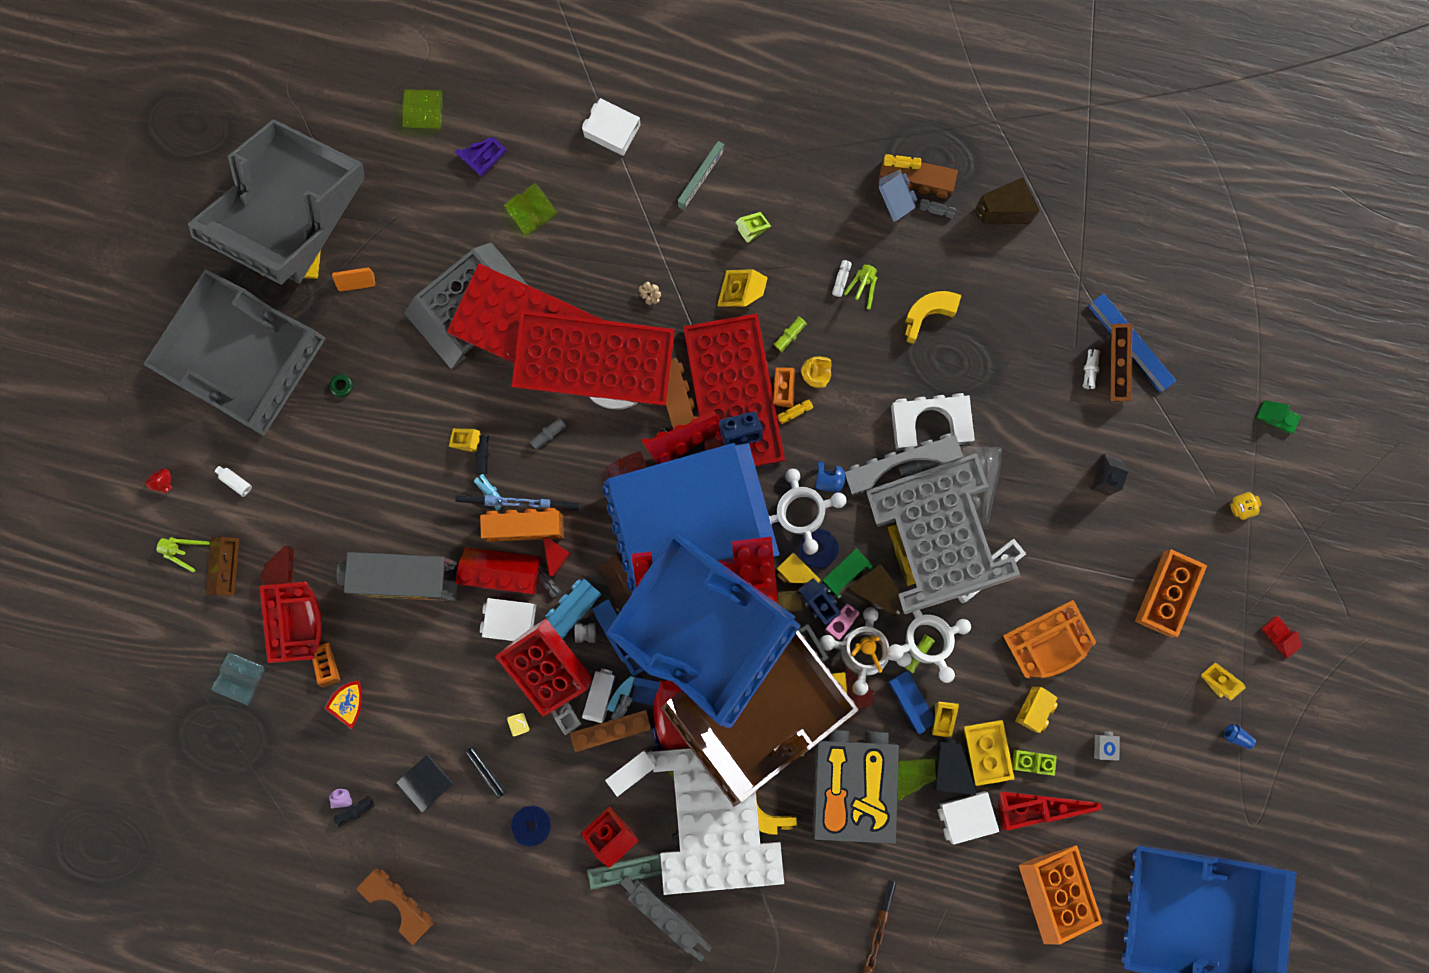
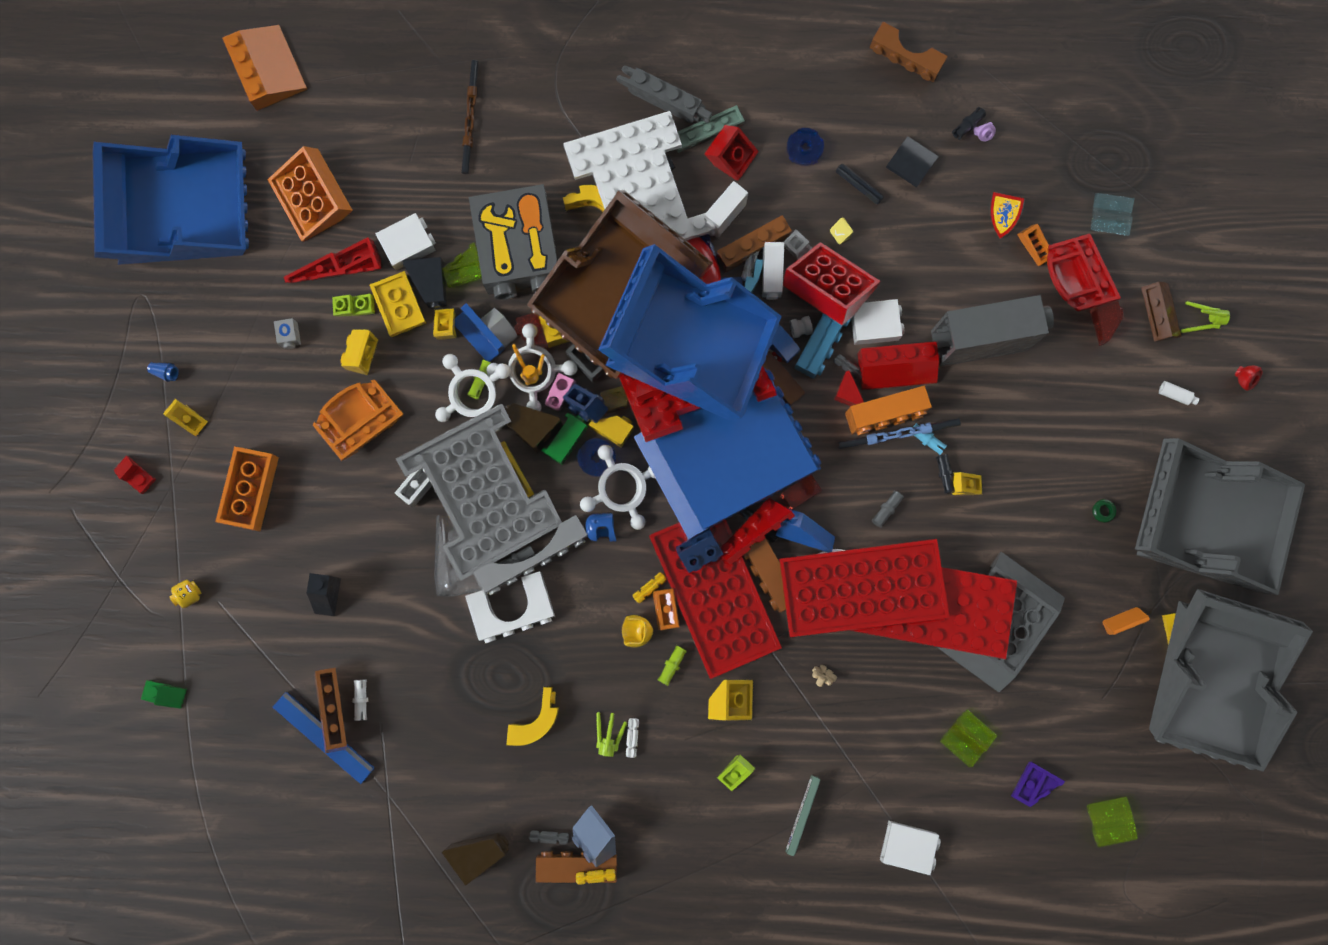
camera: 165 degrees right, 0 degrees up
(631, 427) = (806, 532): none -> blue slope
(889, 704) = (500, 327): none -> light grey slope

